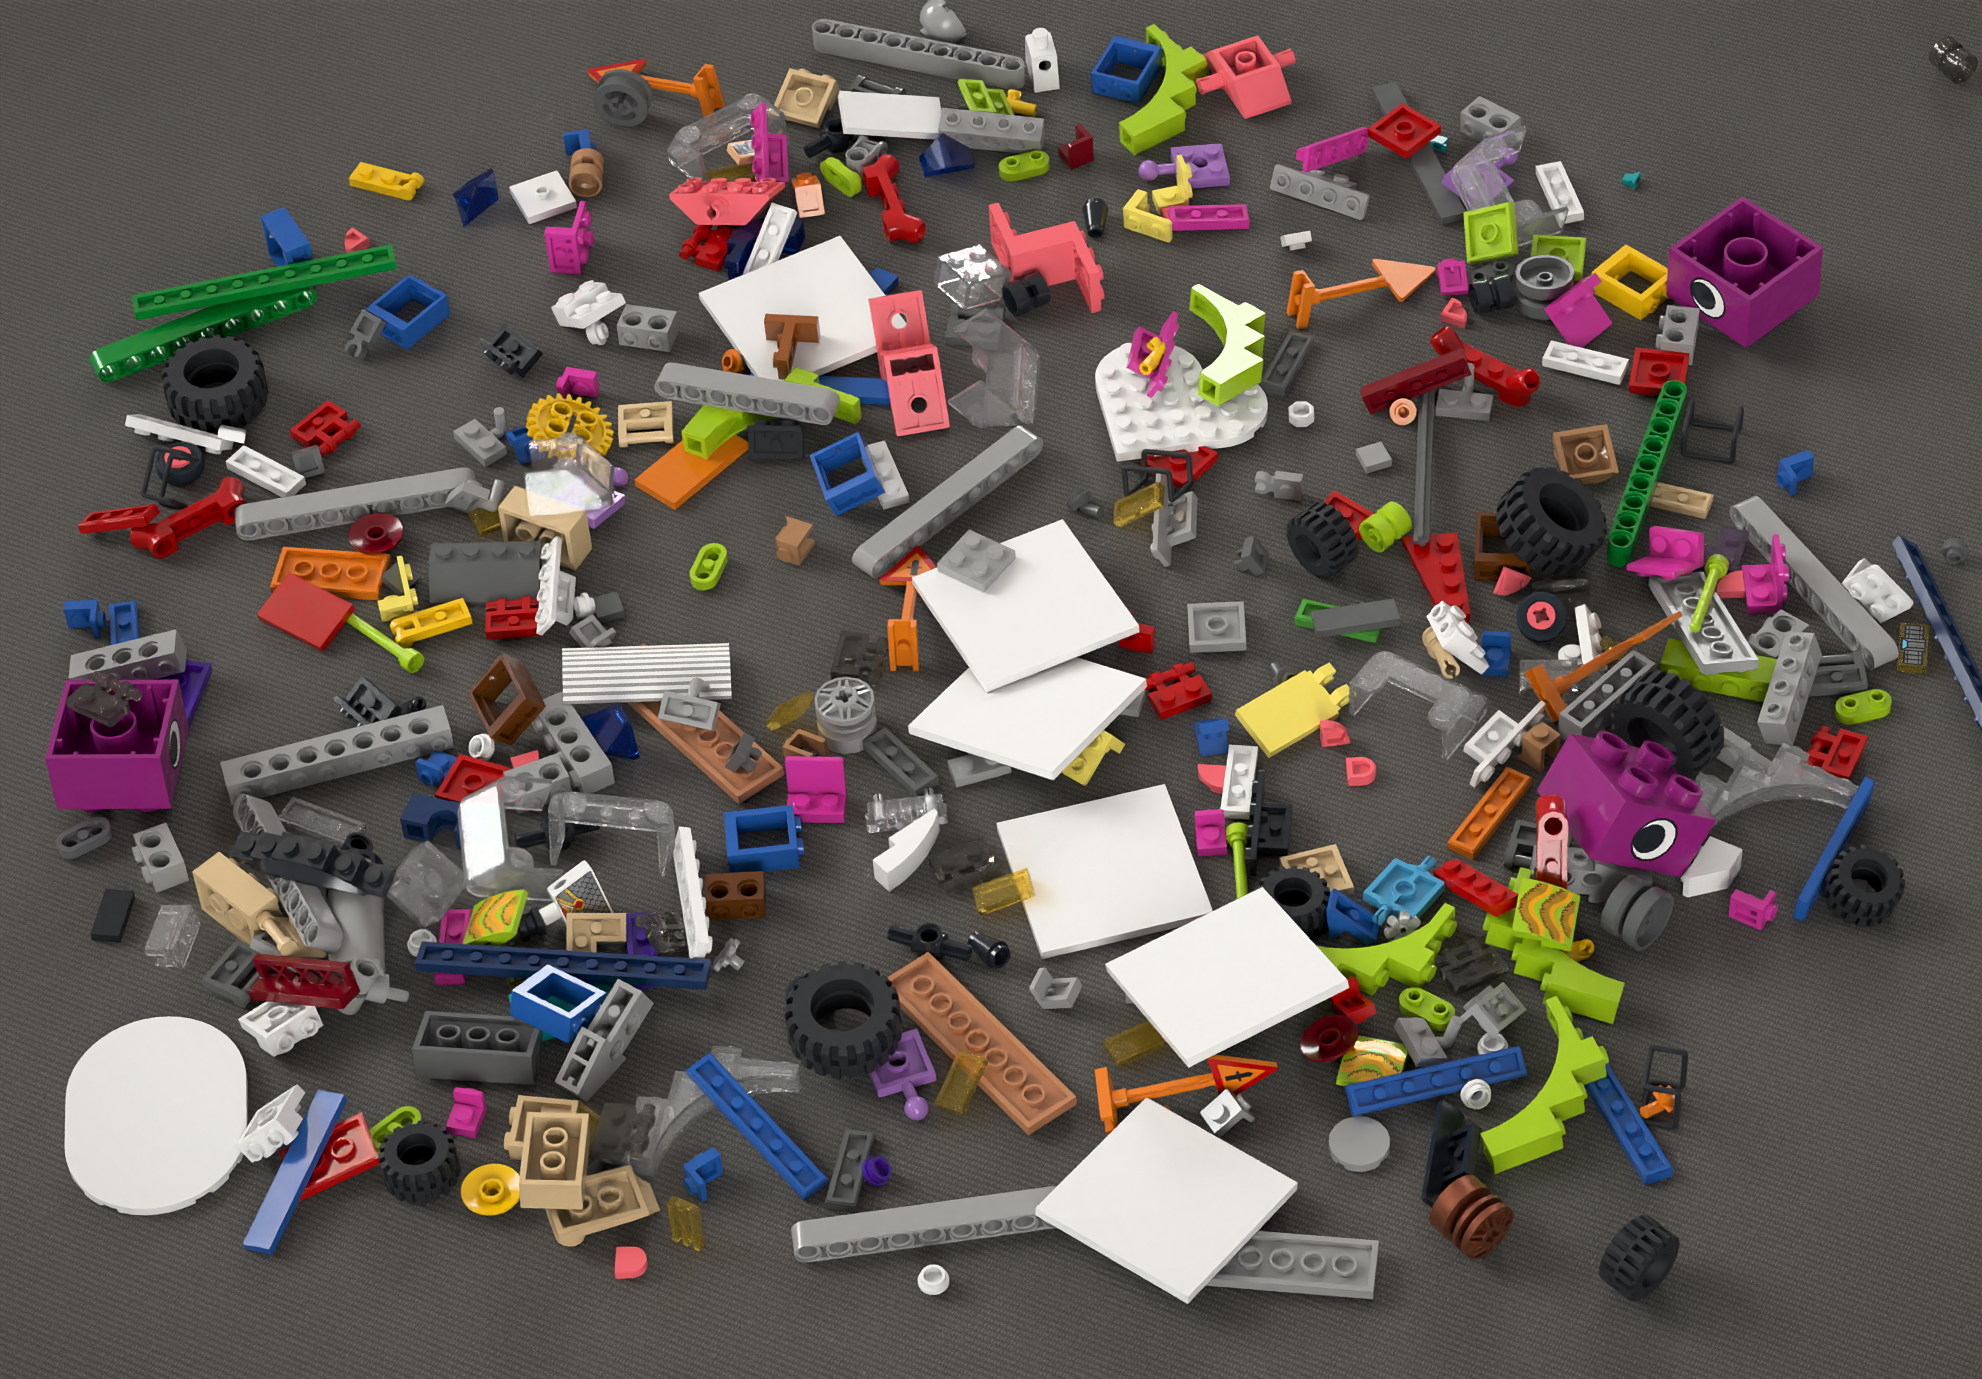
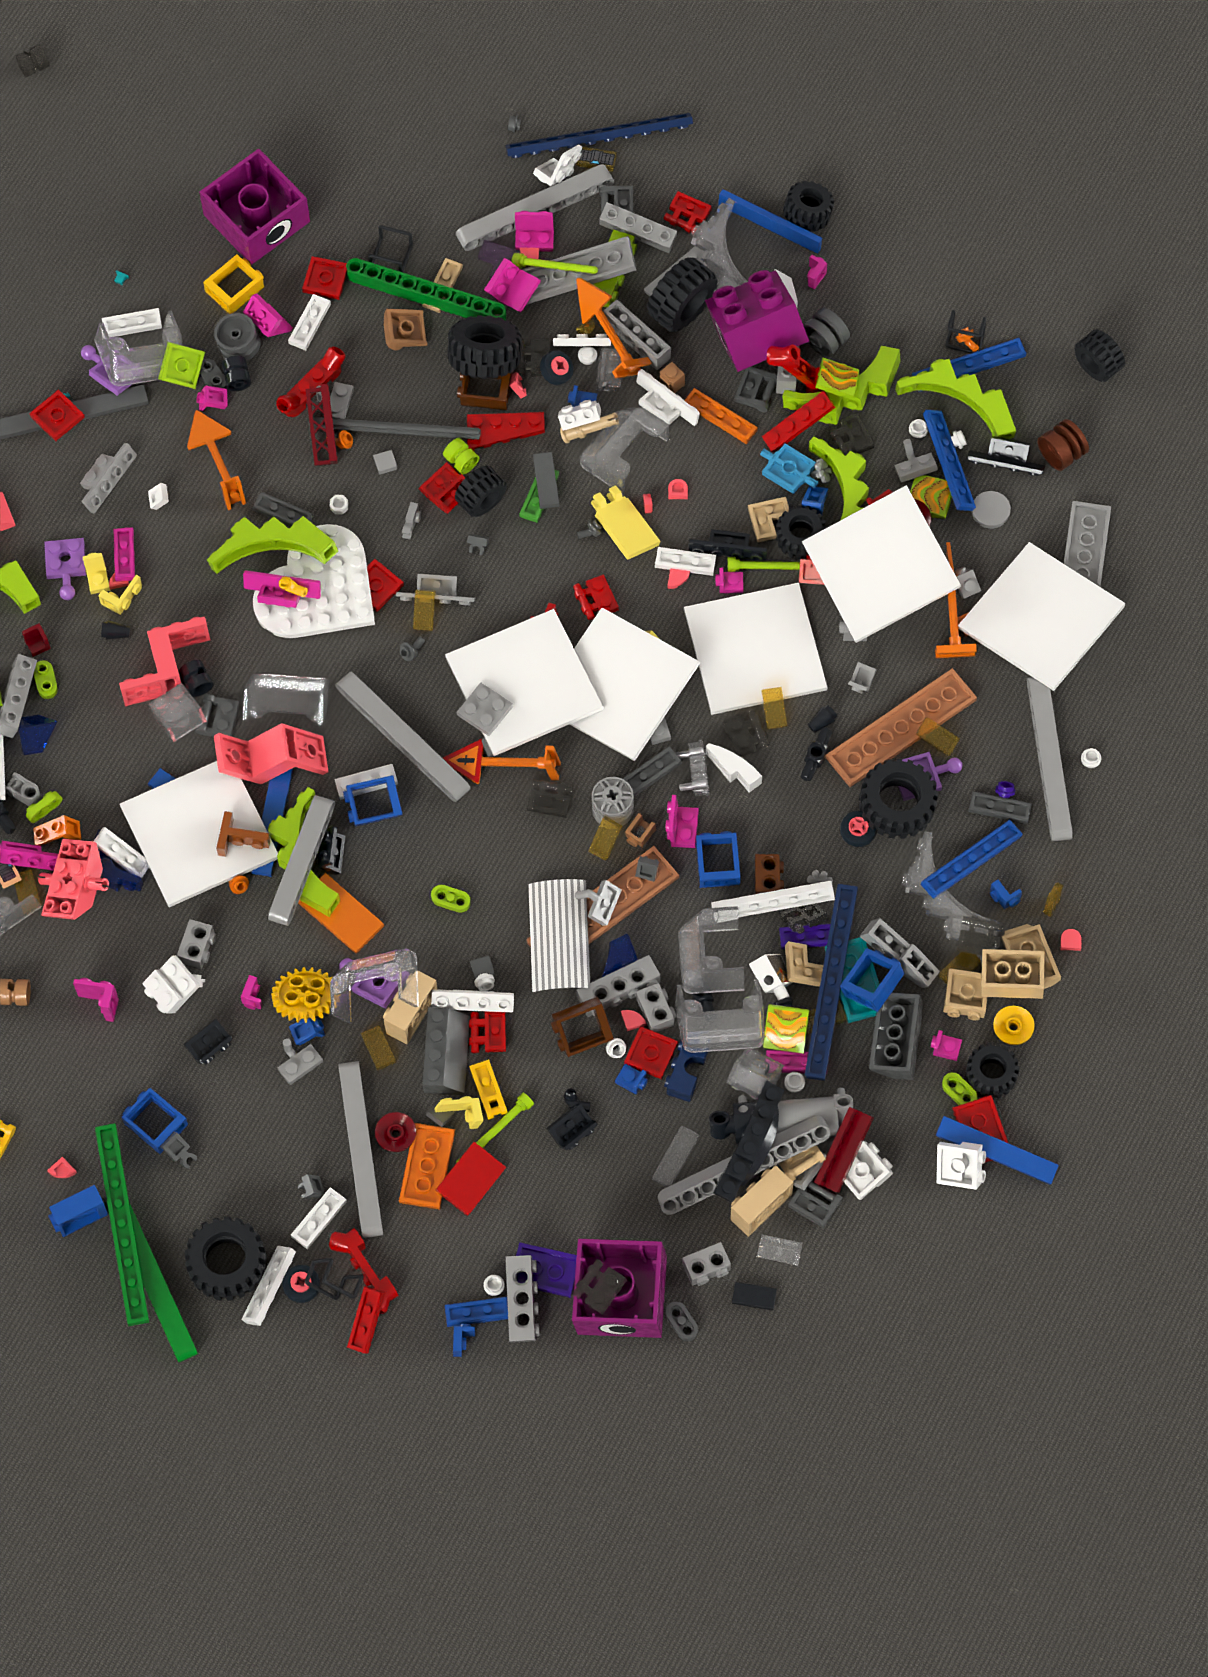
camera: 90 degrees left, 20 degrees up
(156, 1115) = (936, 1251): white tile -> none
(231, 433) = (277, 1244): white tile -> none
(320, 423) = (272, 1183): red plate -> none
(338, 754) = (632, 1216): light grey brick -> none
(472, 494) = (376, 1056): light grey plate -> none
(476, 196) = (23, 1079): clear blue slope -> none
(543, 197) = (29, 1028): white plate -> none
(591, 634) = (515, 974): light grey bracket -> none
(645, 417) = (290, 944): tan plate -> none
(714, 251) = (112, 900): red plate -> none
(792, 541) = (433, 839): medium nougat window -> none
(895, 221) = (104, 767): red plate -> none
(1133, 1043) = (903, 636): clear yellow tile -> none
(1145, 469) = (418, 581): black piece -> none
(1211, 736) = (640, 575): blue slope -> none
(1216, 627) = (542, 568): light grey plate -> none
(1333, 149) = (76, 467): dark pink bracket -> none
(1422, 1004) = (885, 463): lime plate -> none
(1454, 314) = (245, 401): coral tile -> none
(1486, 119) = (49, 358): light grey brick -> none
(1494, 1008) = (894, 423): light grey bracket -> none
(1565, 247) = (198, 330): lime plate -> none
(1678, 330) = (292, 257): light grey brick -> none
(1770, 637) = (592, 231): light grey brick -> none
(1794, 469) = (433, 210): blue bracket -> none
(1863, 706) = (643, 192): lime plate -> none

